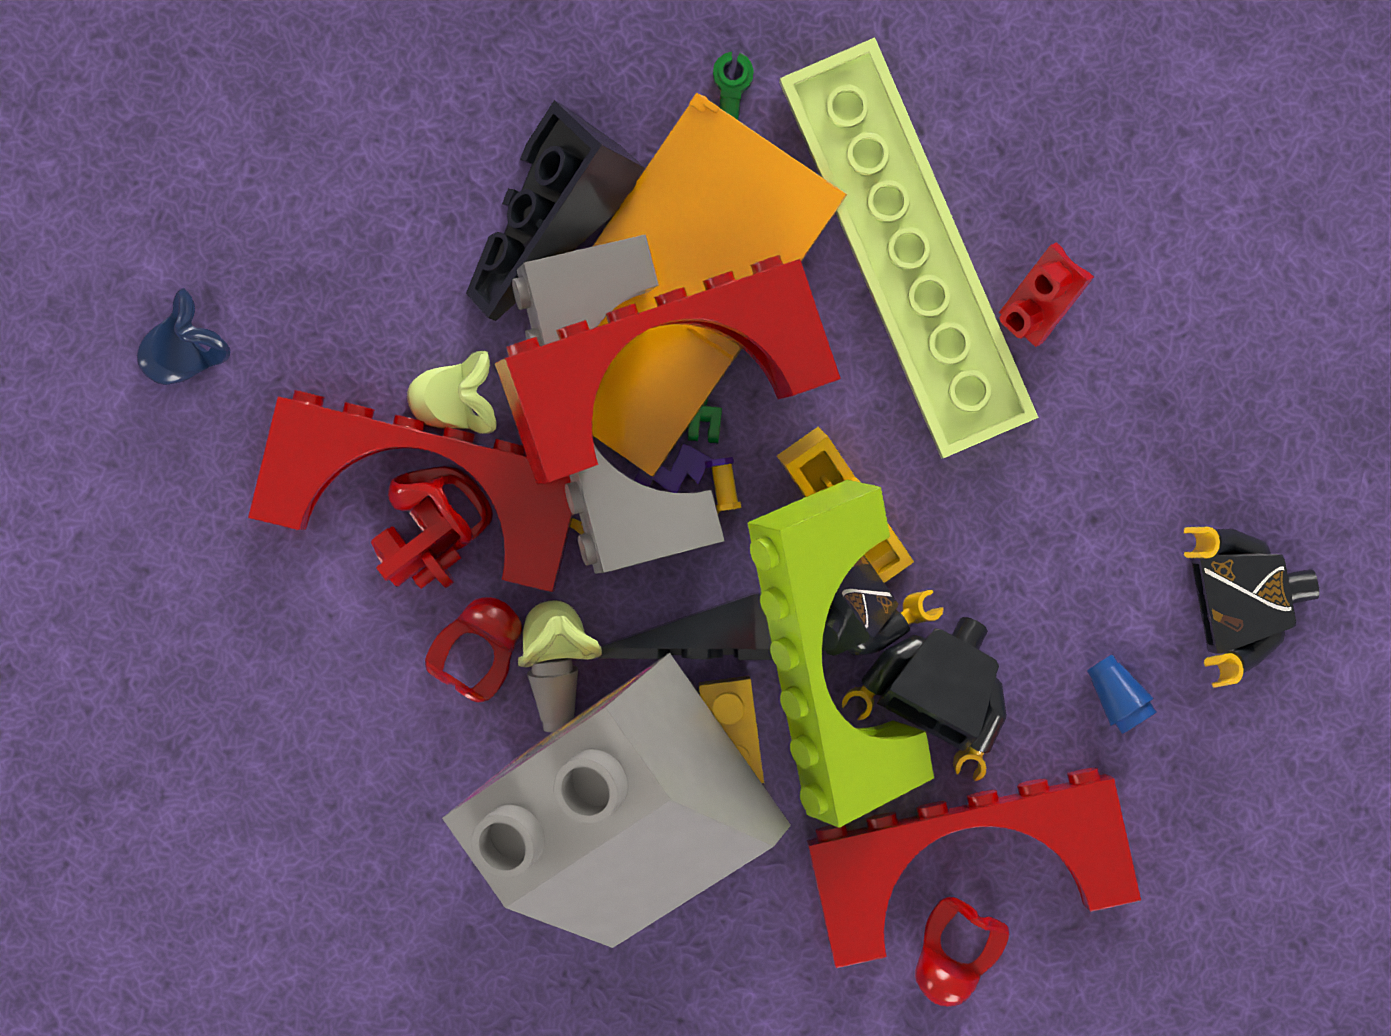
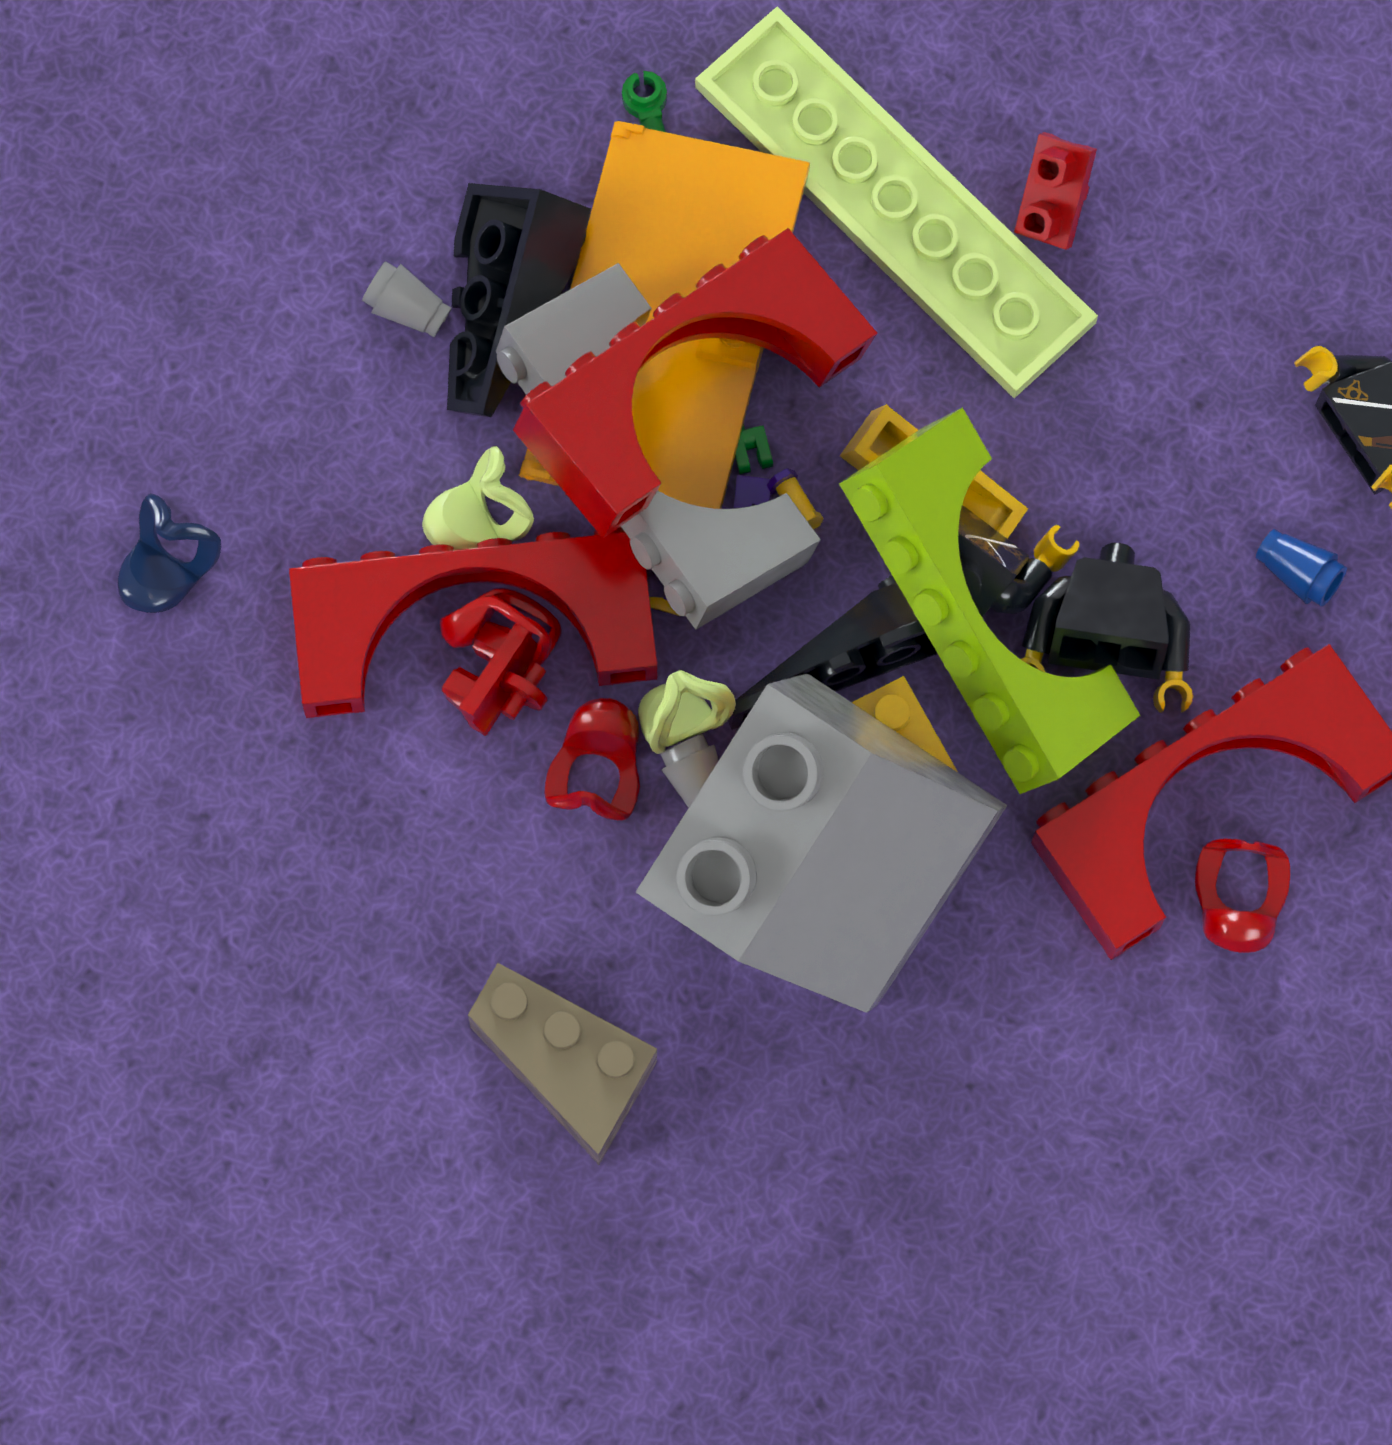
camera: 25 degrees left, 15 degrees down
(359, 886) = (564, 1055): none -> dark tan wedge
(463, 187) = (405, 300): none -> light grey cone

